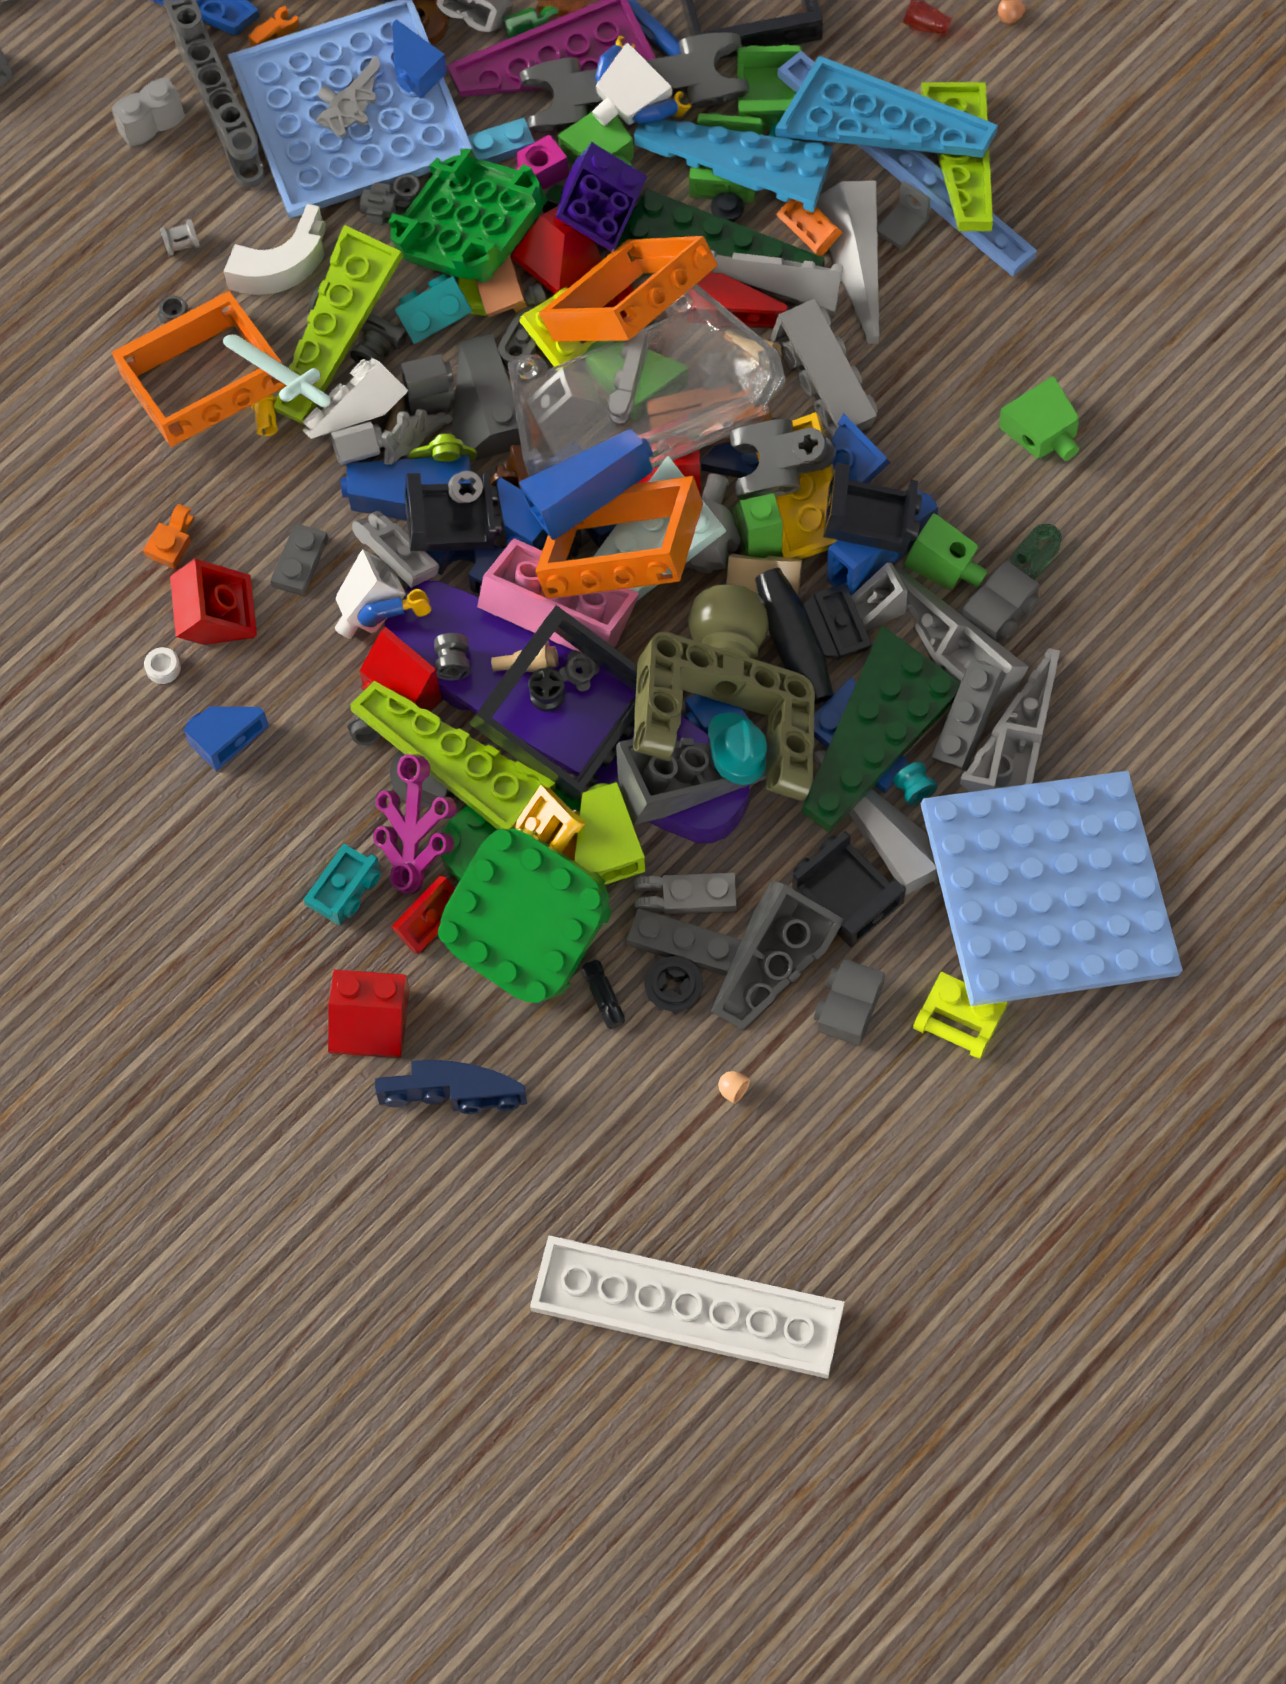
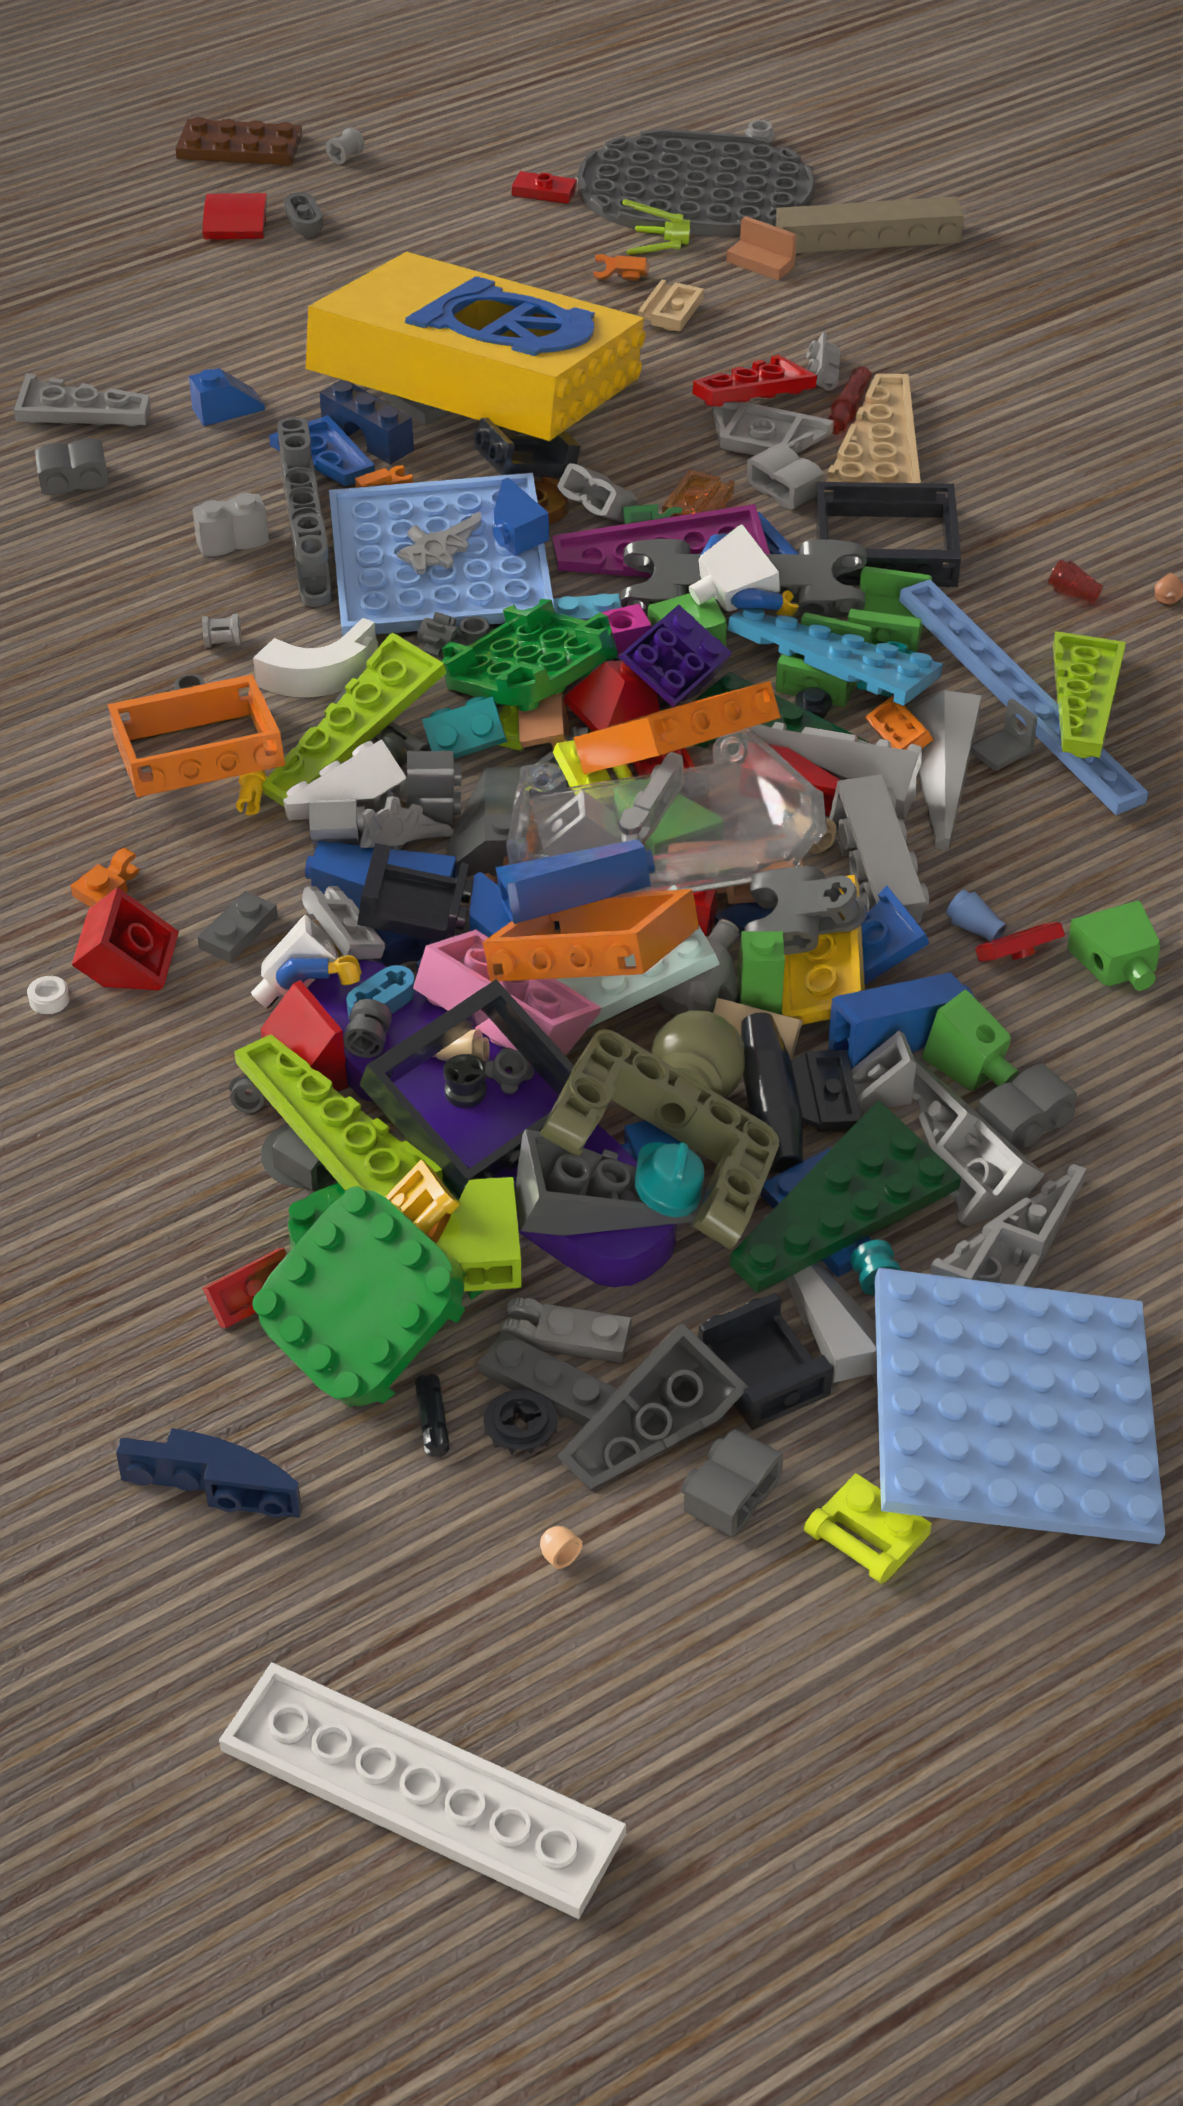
camera: 10 degrees right, 20 degrees down
(224, 732) = (90, 1064): blue slope -> none
(294, 383) = (283, 749): light aqua sword -> none
(343, 884) = (164, 1238): teal bracket -> none
(367, 1013) = (142, 1373): red slope -> none
(412, 829) = (244, 1237): magenta plant -> none
(443, 449) = (430, 842): lime plate -> none
(445, 613) = (390, 986): none -> dark azure beam
(475, 487) = (438, 860): light grey bush -> none
(864, 110) = (984, 632): dark azure wing -> none
(871, 513) = (889, 976): black panel -> none
(918, 415) = (975, 916): none -> medium blue cone
(961, 434) = (1020, 943): none -> red plate
(968, 715) = (959, 1206): dark grey plate -> none
(1041, 557) = (1085, 1075): clear green beam -> none

